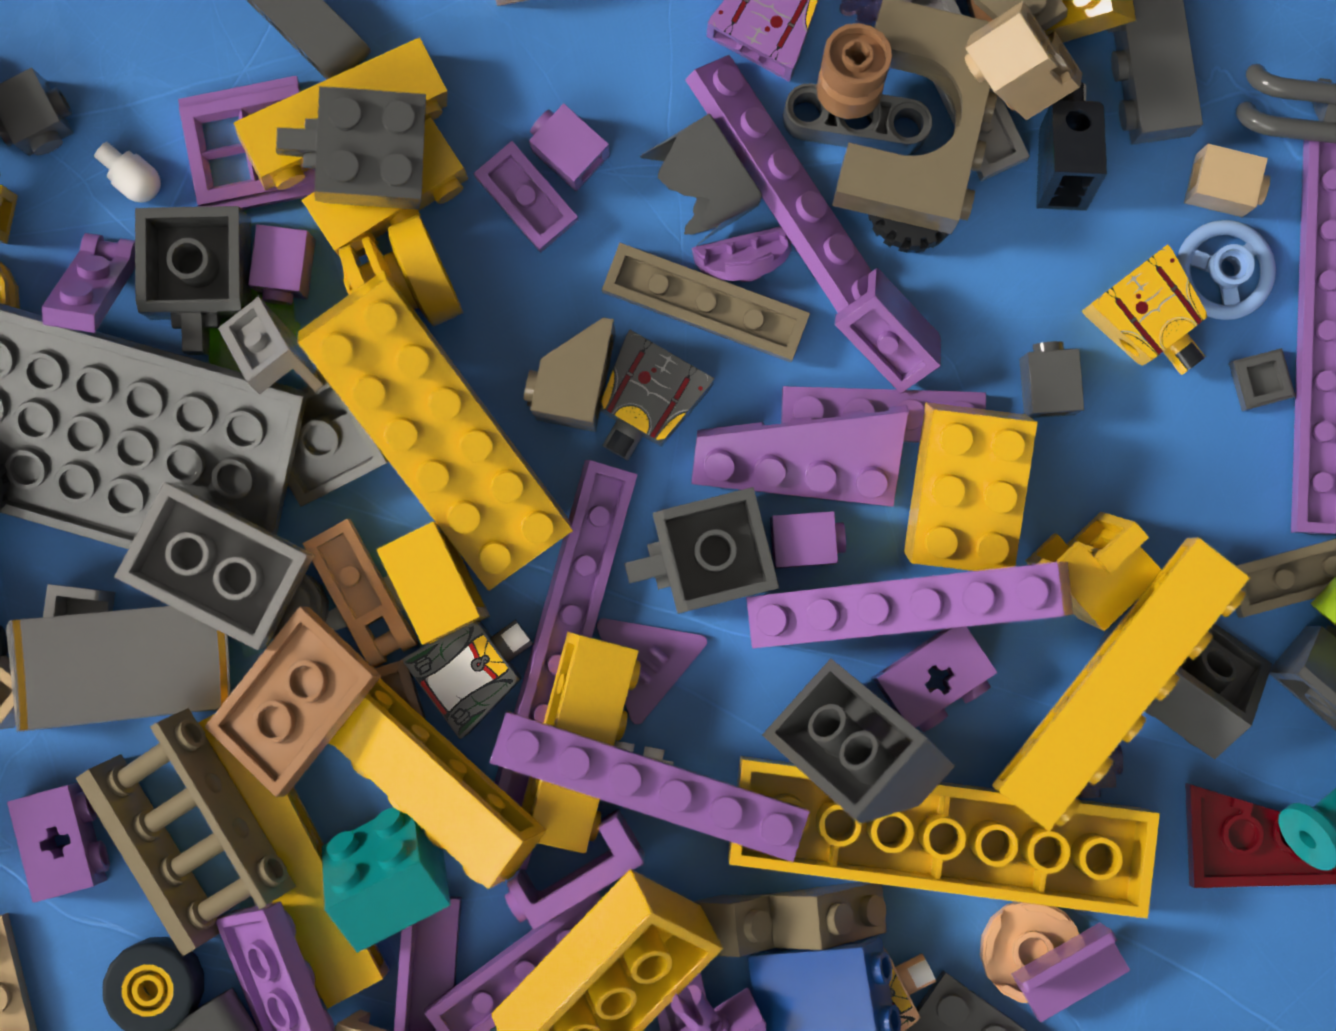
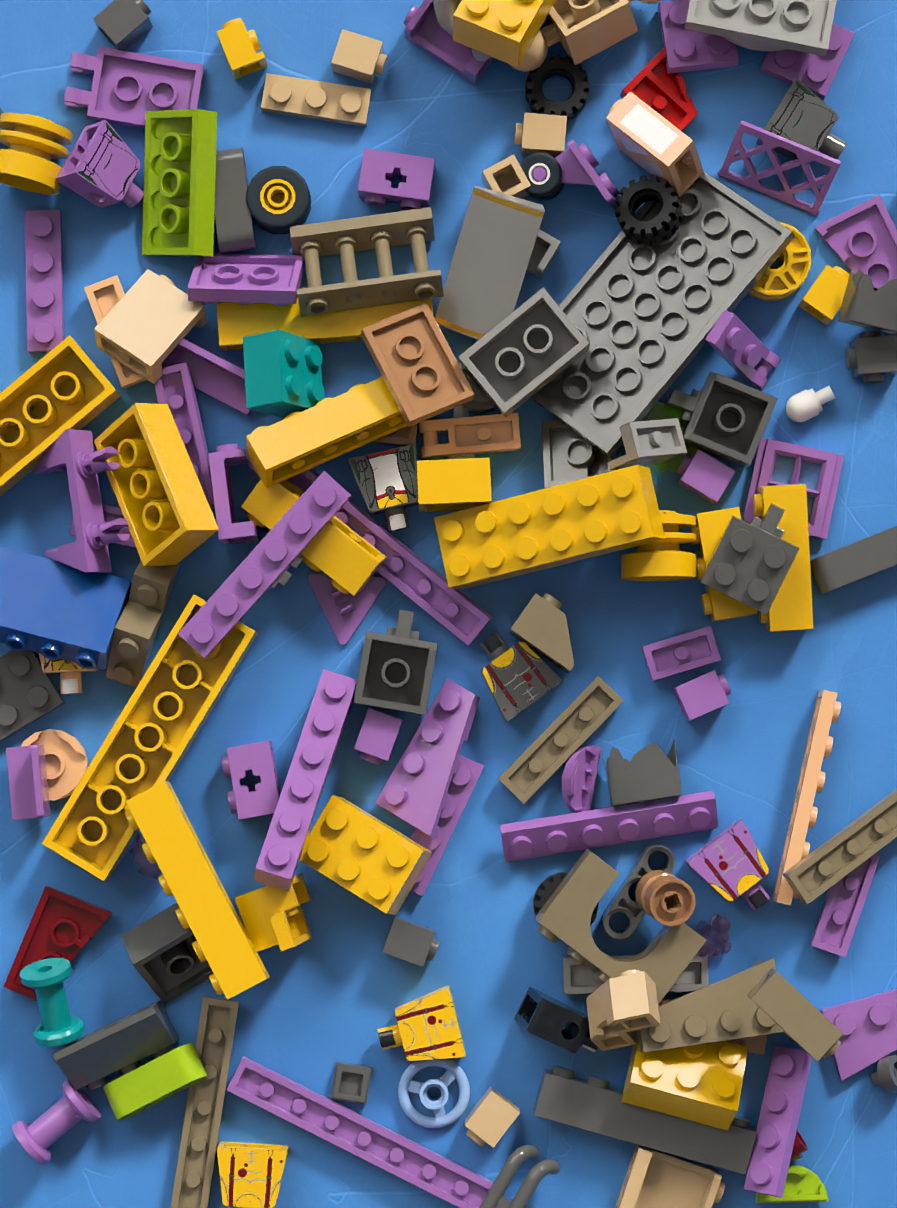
camera: 115 degrees right, 0 degrees up
(857, 747) = (231, 706): dark grey slope -> none
(891, 333) = (487, 850): medium lavender panel -> none

